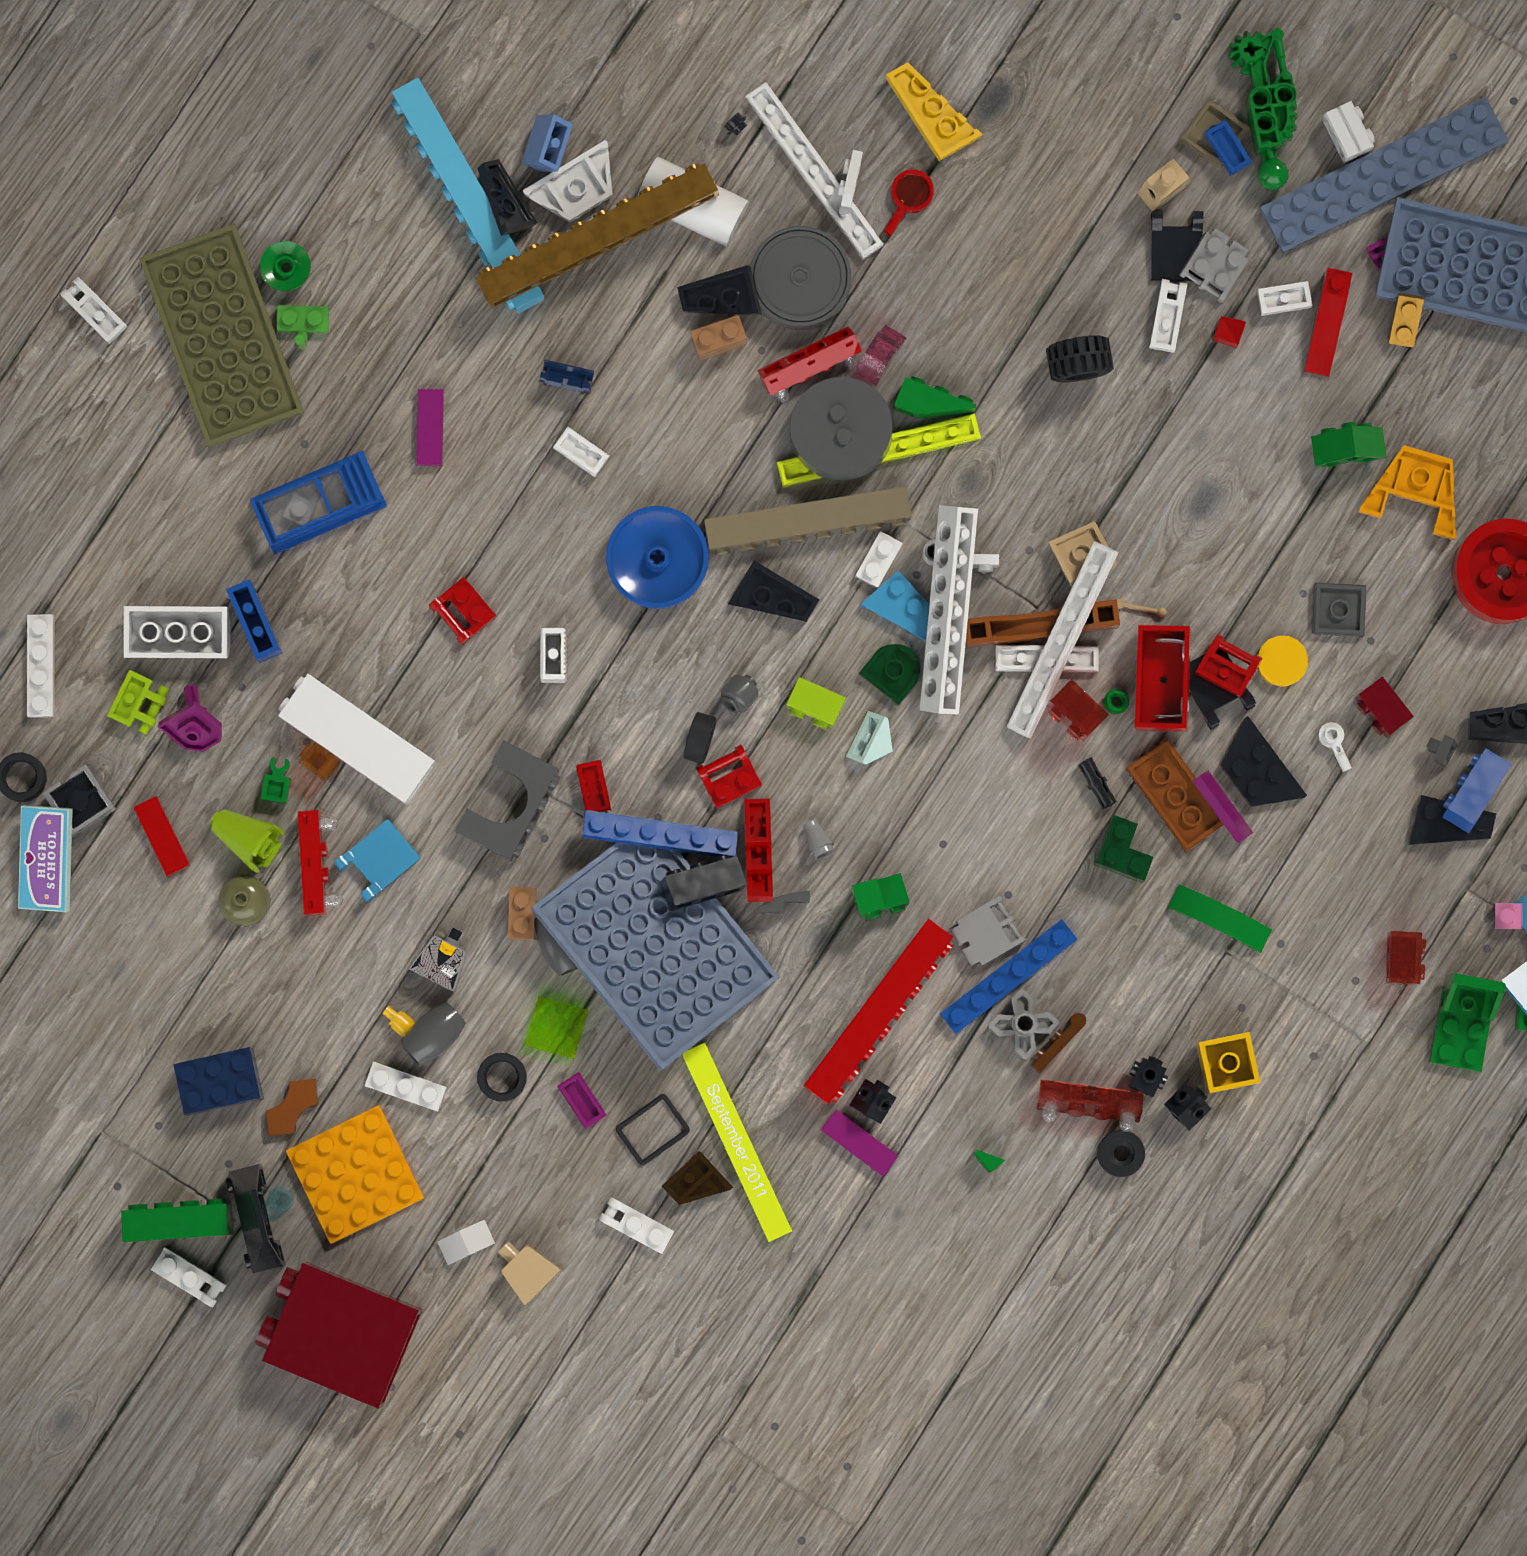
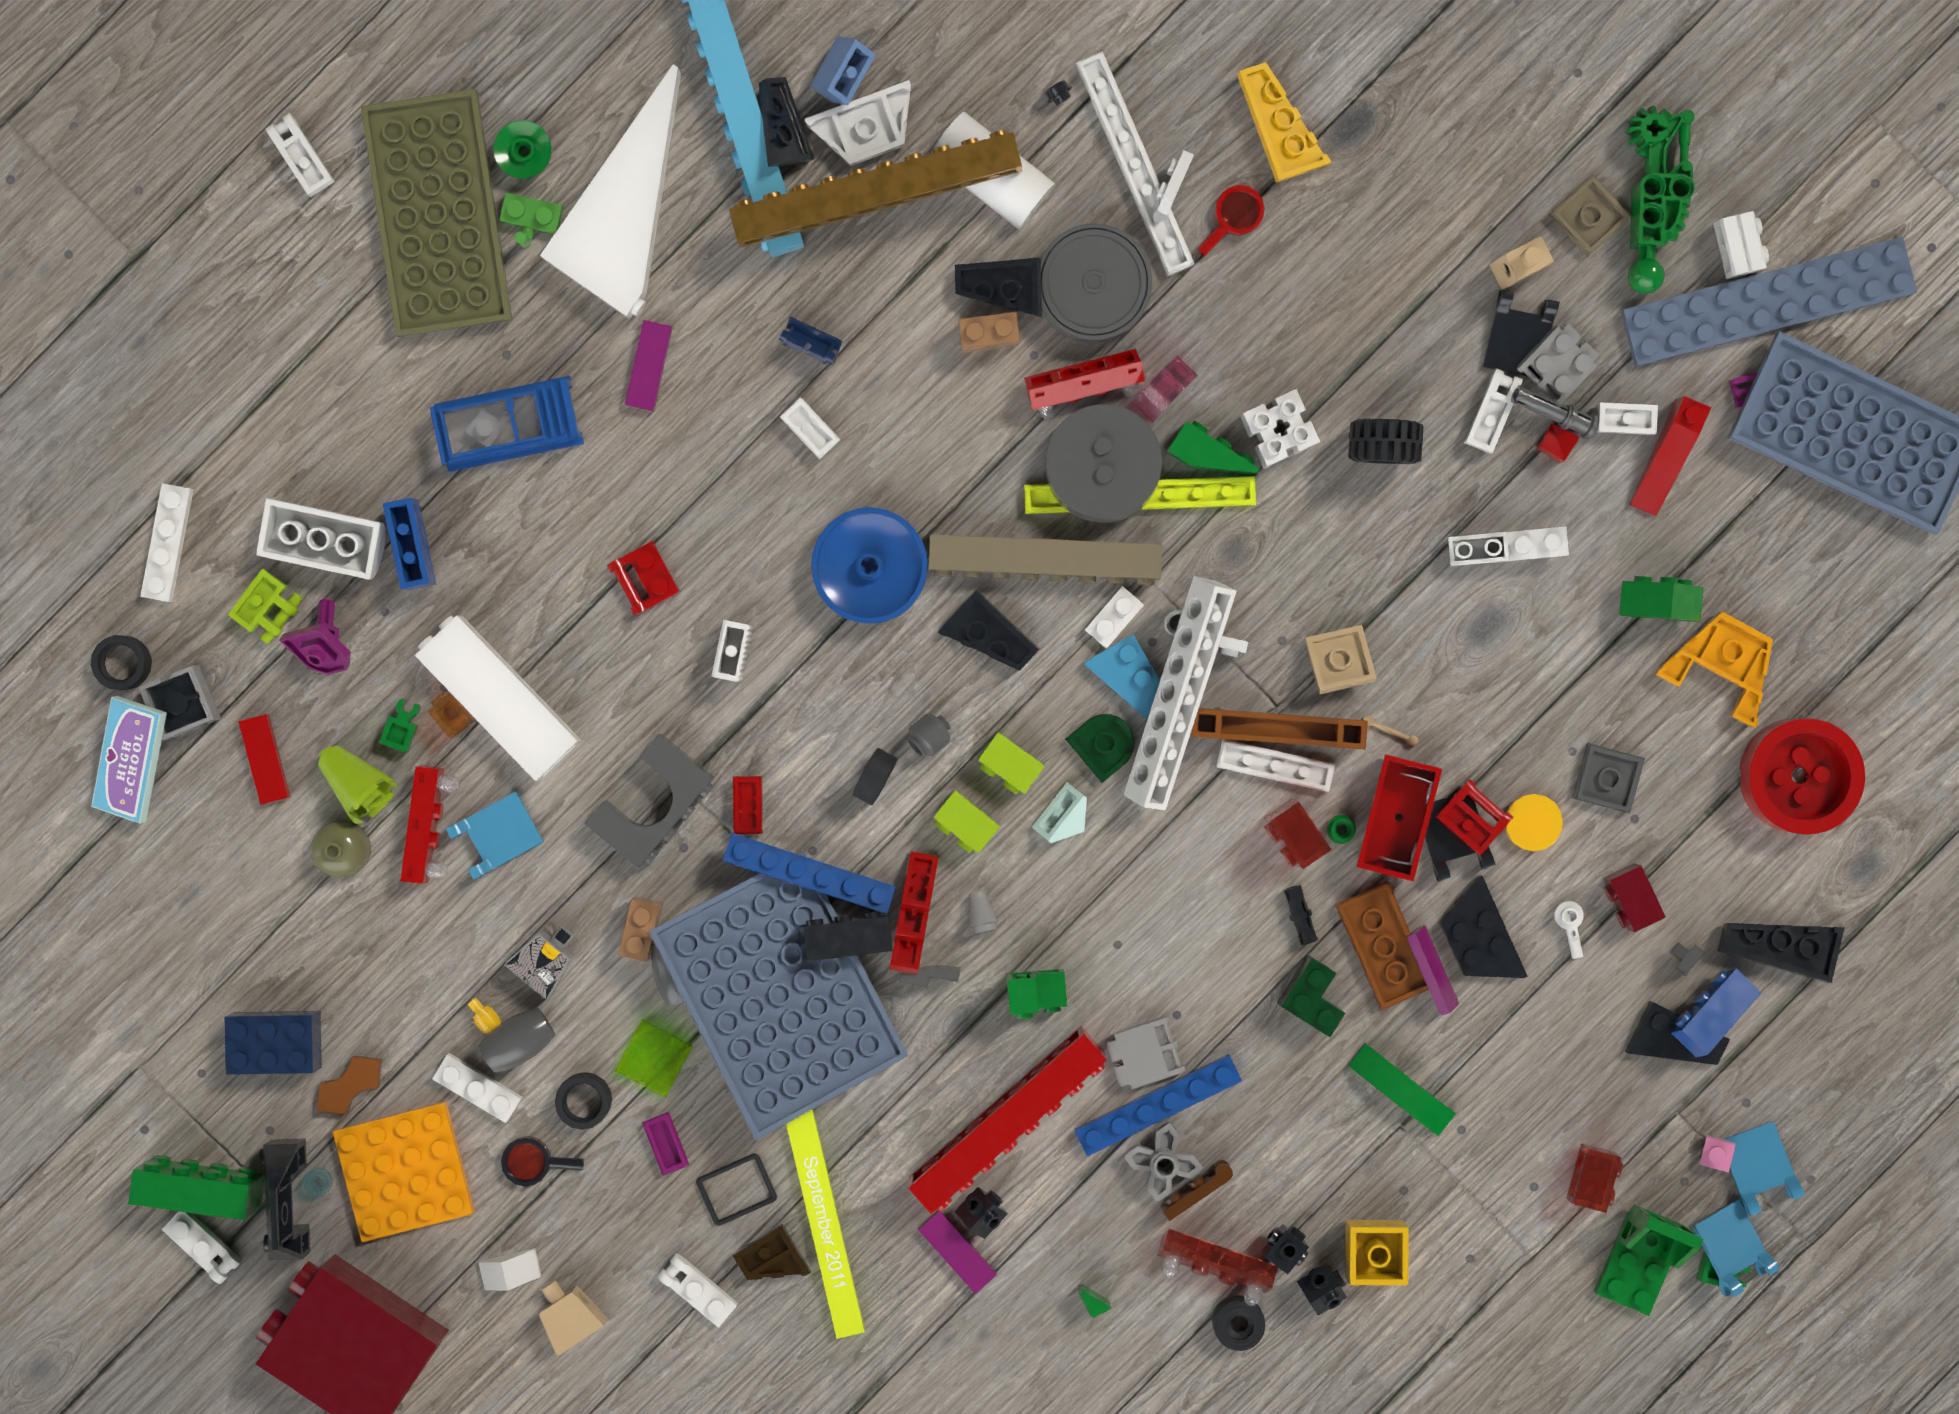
camera: 15 degrees right, 5 degrees up
(376, 314) = (613, 226): none -> white slope
(463, 1141) = (529, 1160): none -> piece
(732, 784) = (902, 832): red plate -> none
(787, 761) = (966, 822): none -> lime brick
(985, 384) = (1262, 423): none -> white brick
(1062, 639) = (1298, 751): white tile -> none
(1206, 427) = (1508, 546): none -> white slope
(1227, 148) = (1602, 235): blue tile -> none
(1230, 306) = (1566, 416): none -> dark grey pin
(1406, 320) = (1757, 471): pearl gold plate -> none

